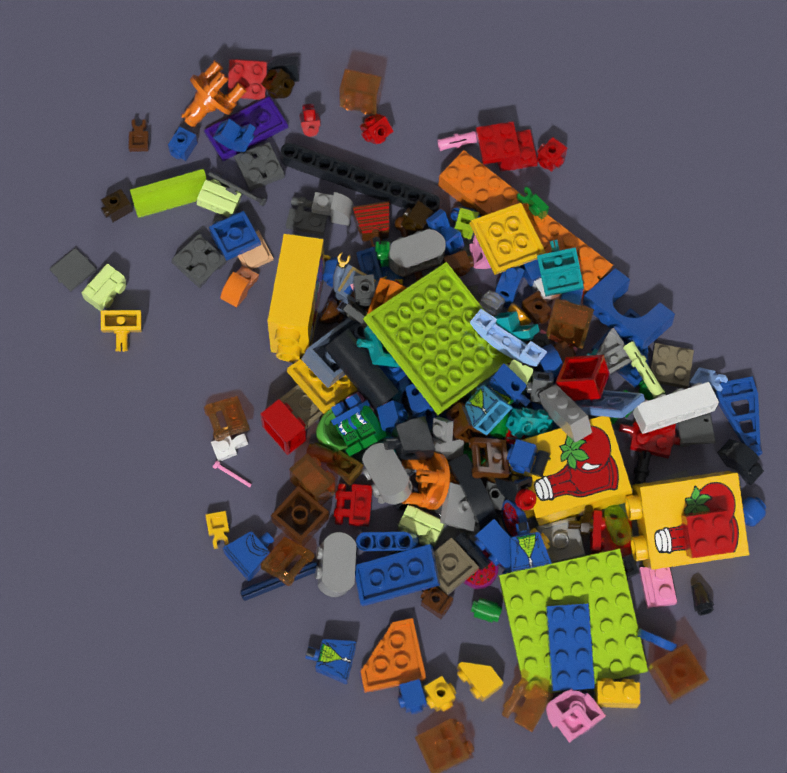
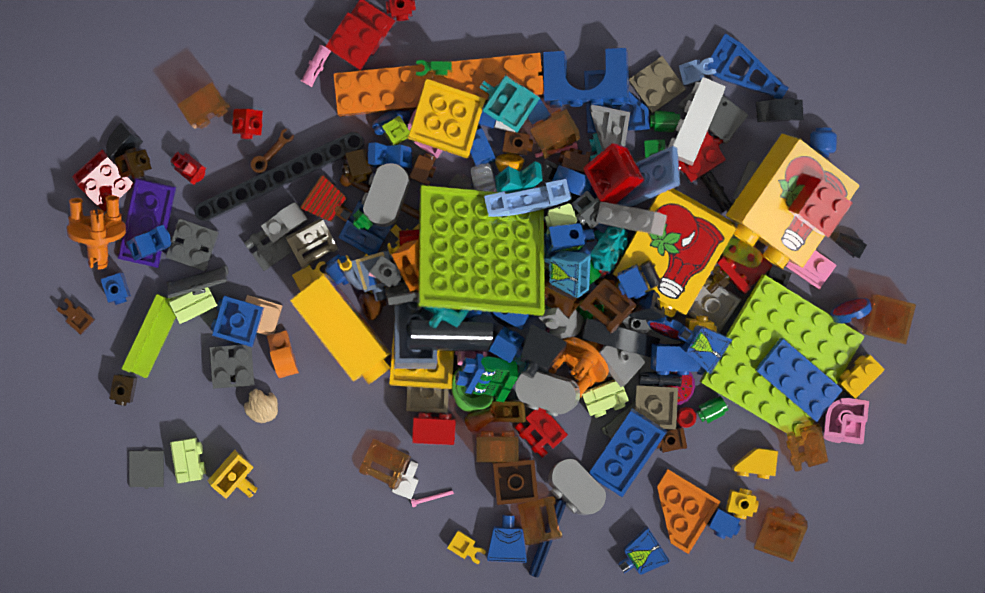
camera: 45 degrees left, 20 degrees up
(189, 303) = (261, 407): none -> tan hair
(337, 231) = (309, 238): none -> dark tan plate
(357, 159) = (270, 153): none -> reddish brown brick
(378, 538) = (592, 443): blue beam -> none
(462, 598) = (686, 417): none -> red plate
(525, 499) = (666, 311): red tile -> none
(642, 367) = (622, 110): yellowish green pin -> none

